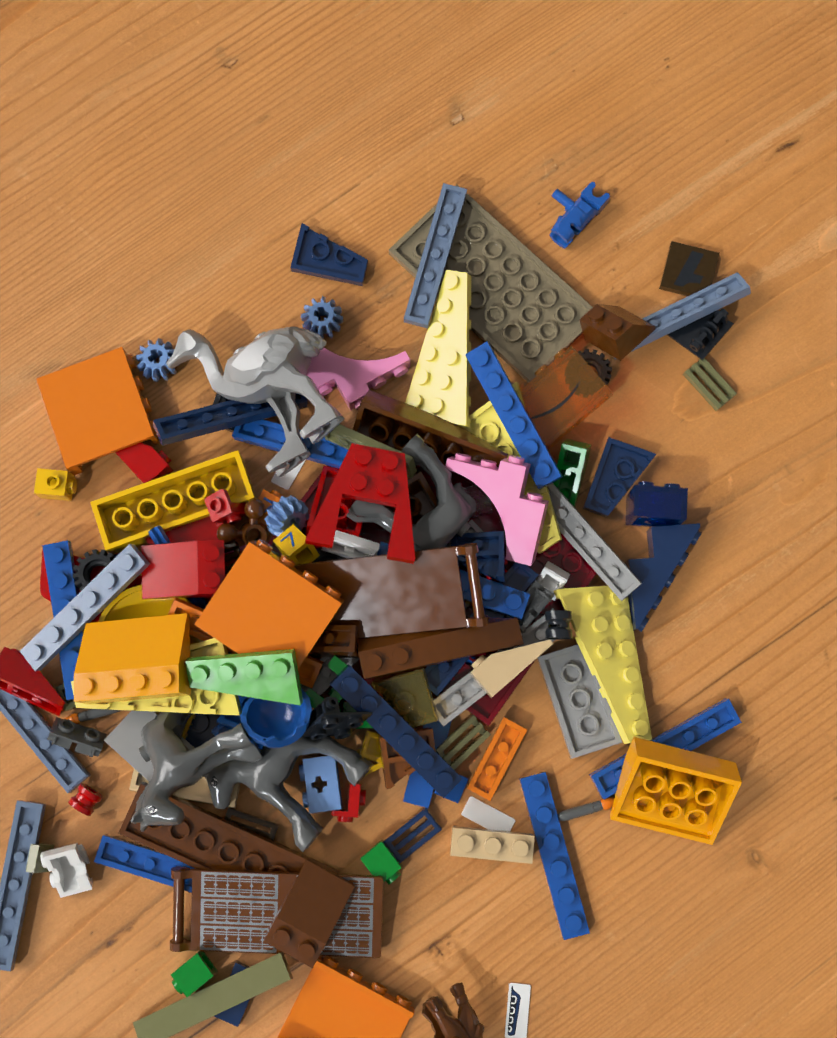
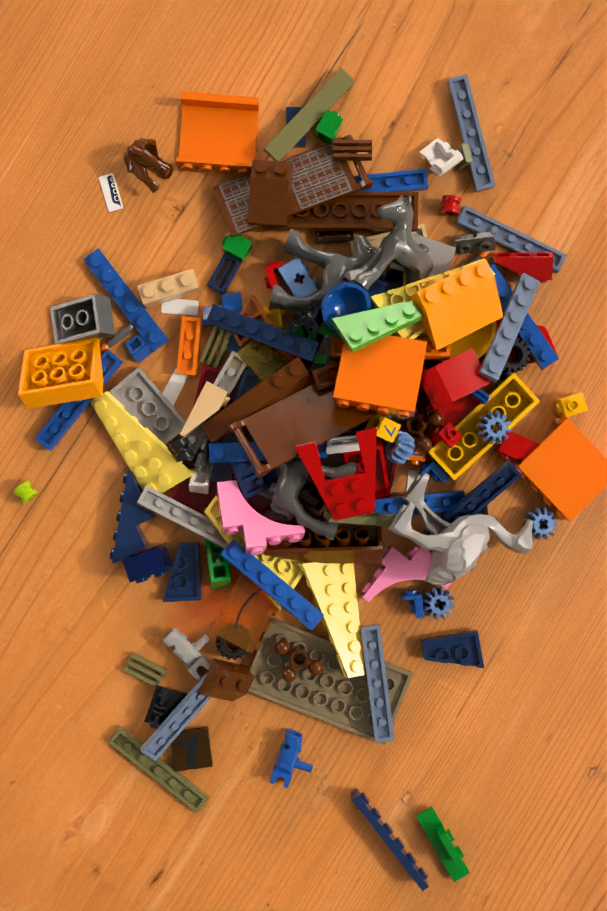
camera: 155 degrees right, 10 degrees up
(155, 499) = (486, 427): none -> medium blue gear
(177, 928) = (352, 147): none -> reddish brown tile
(255, 471) = (436, 472): none -> blue bracket
(349, 326) = (417, 605): none -> blue bracket
(436, 52) = (443, 844): none -> green bracket
(497, 90) = (394, 844): none -> dark blue plate
(535, 306) = (289, 673): none -> reddish brown piece
(536, 715) = (174, 386): none -> white sticker
(563, 785) = (138, 348): none -> blue slope
(621, 851) = (82, 319): none -> dark grey slope
(649, 383) = (187, 651): none -> light grey piece
(734, 260) = (159, 770): none -> olive tile
(778, 658) = (25, 492): none -> lime wheel

